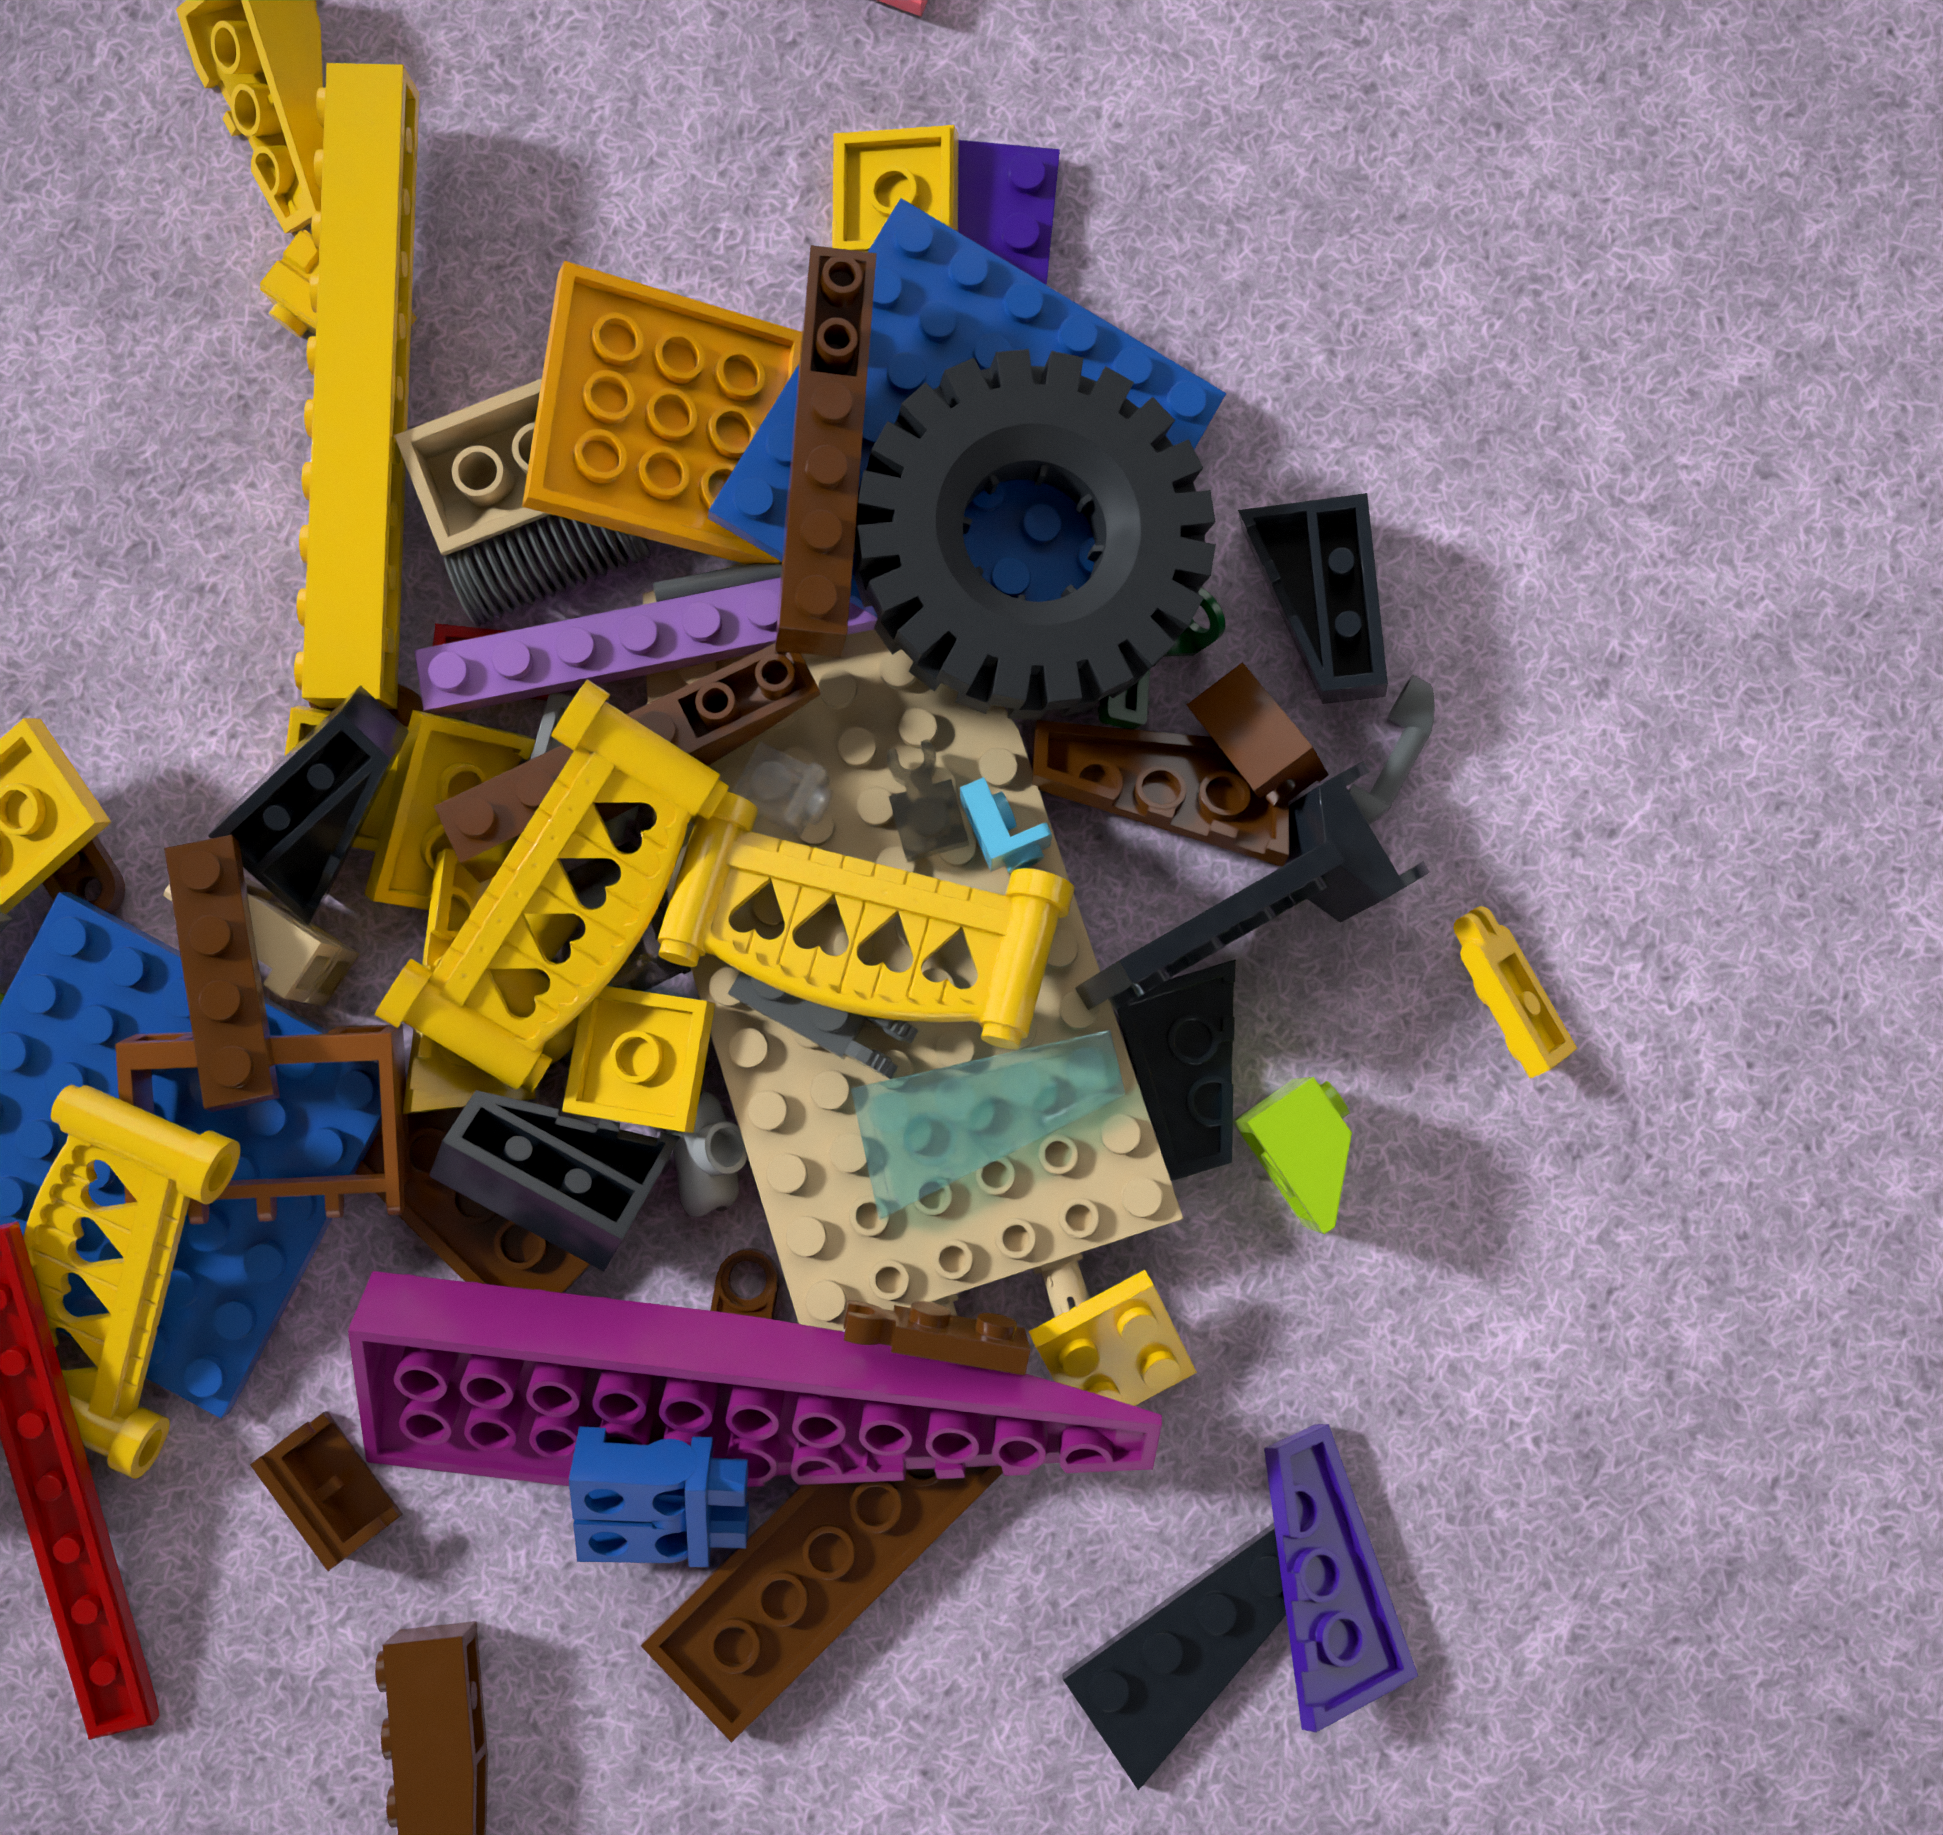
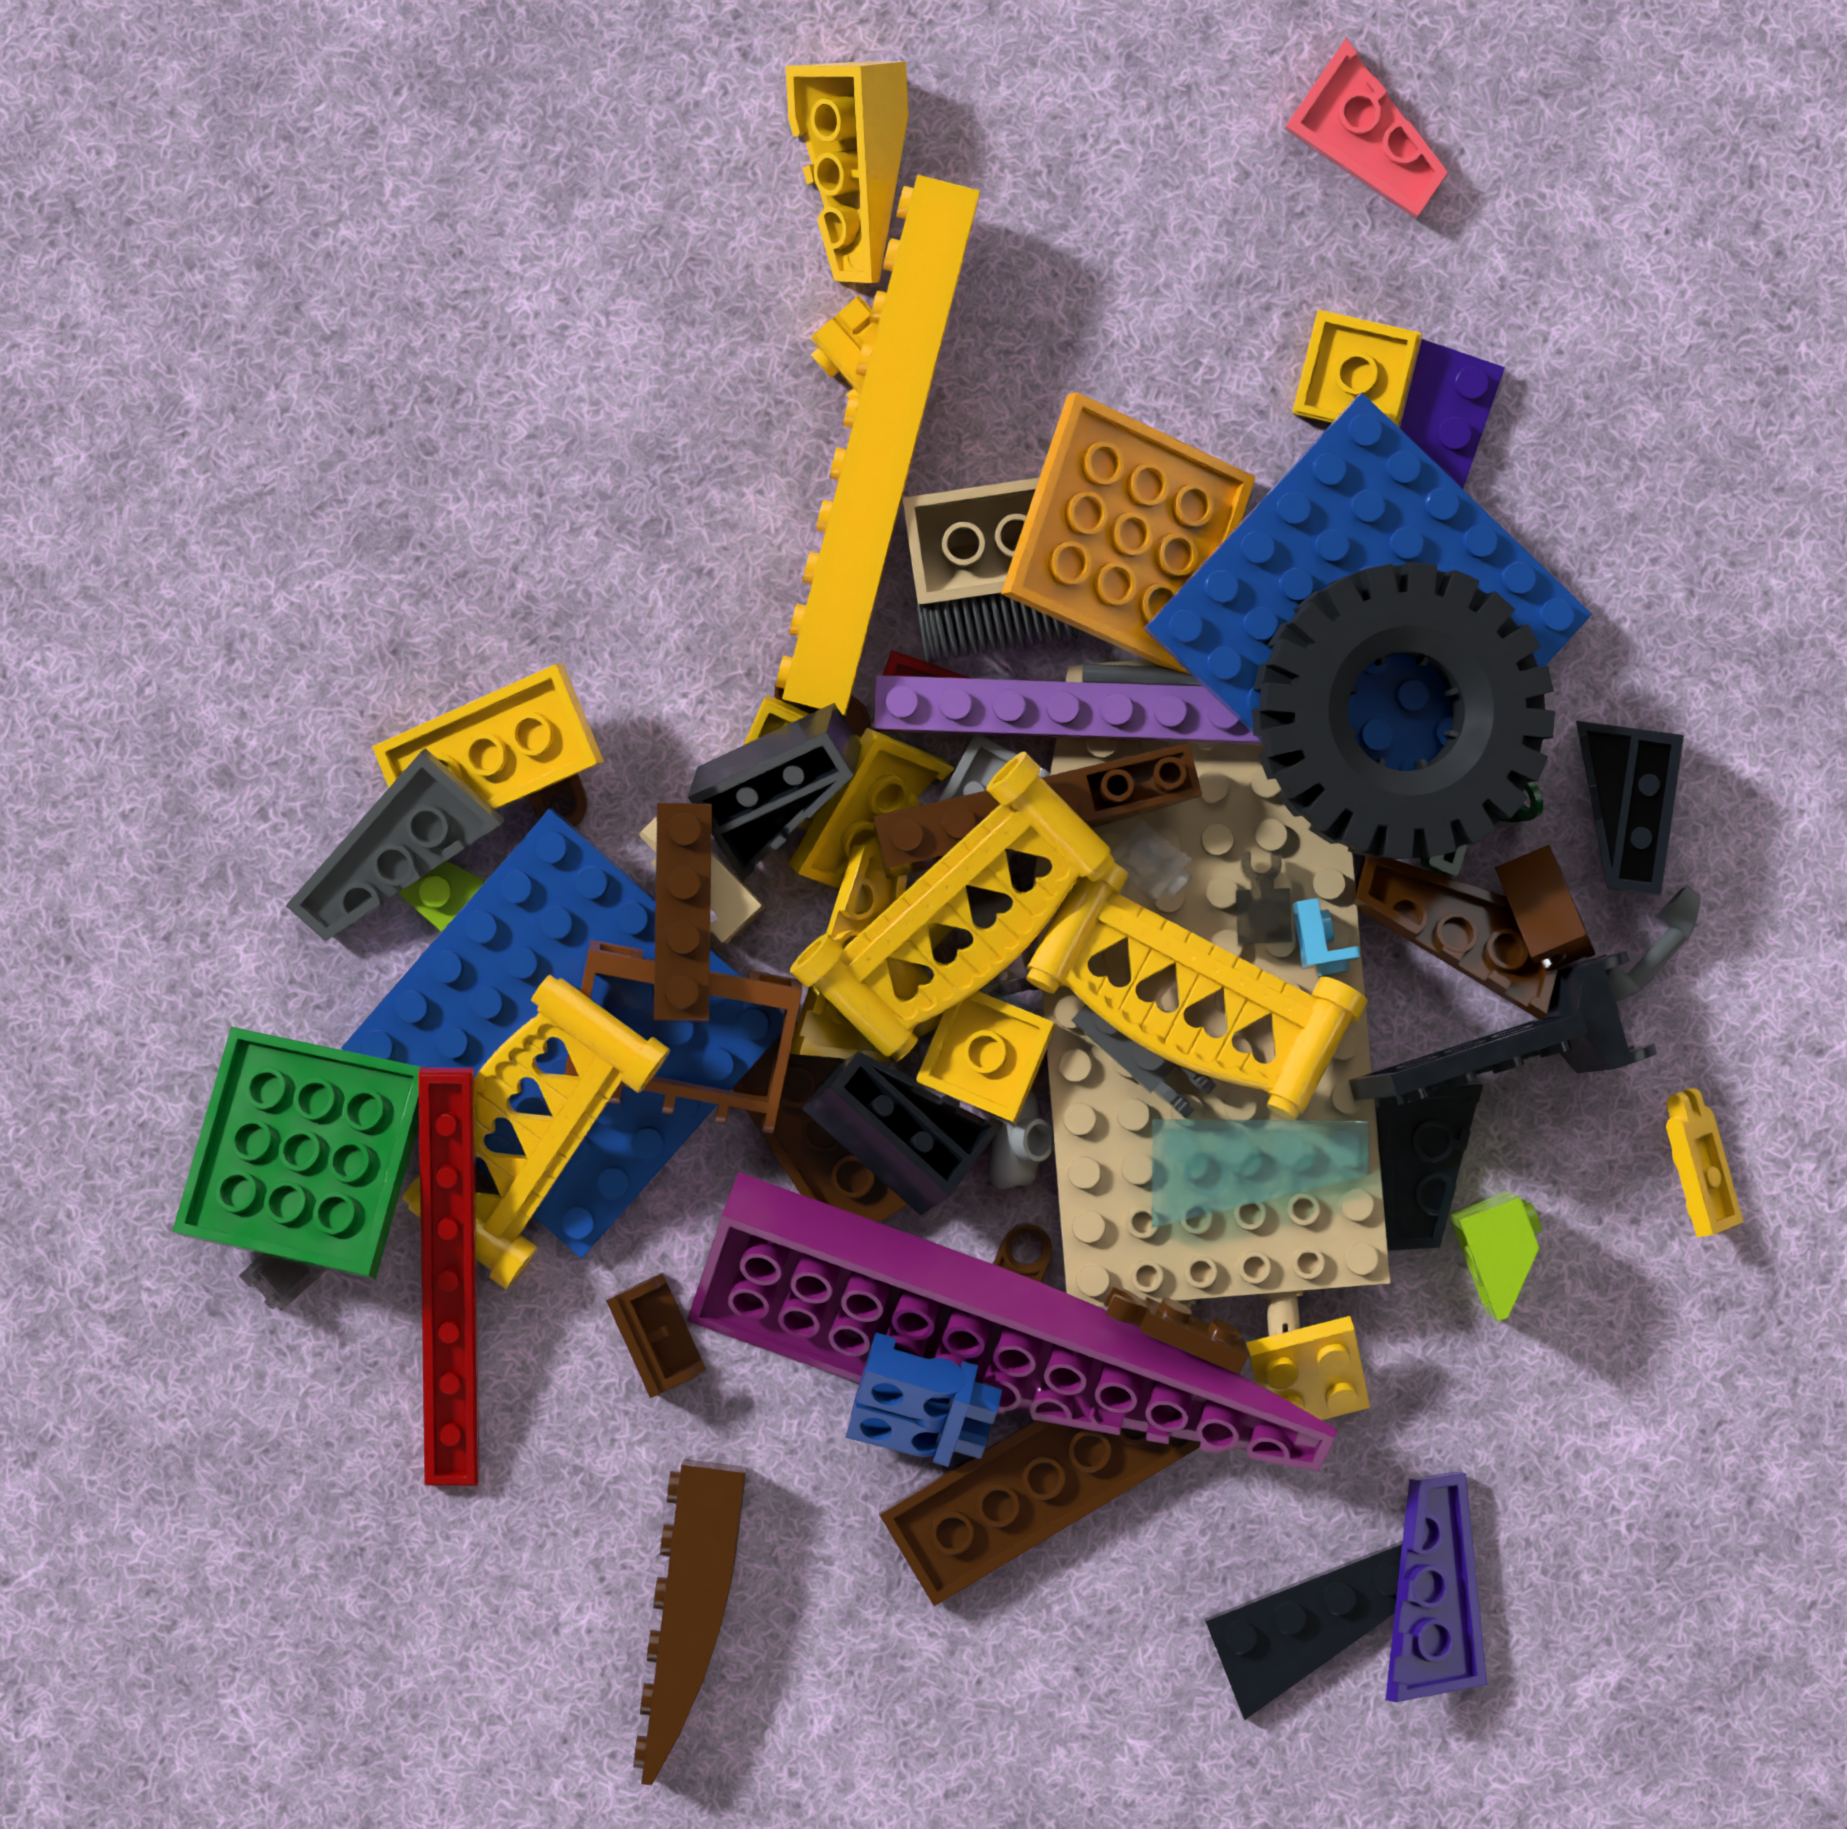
camera: 10 degrees right, 5 degrees up
(826, 453) = (1254, 611): reddish brown slope -> none

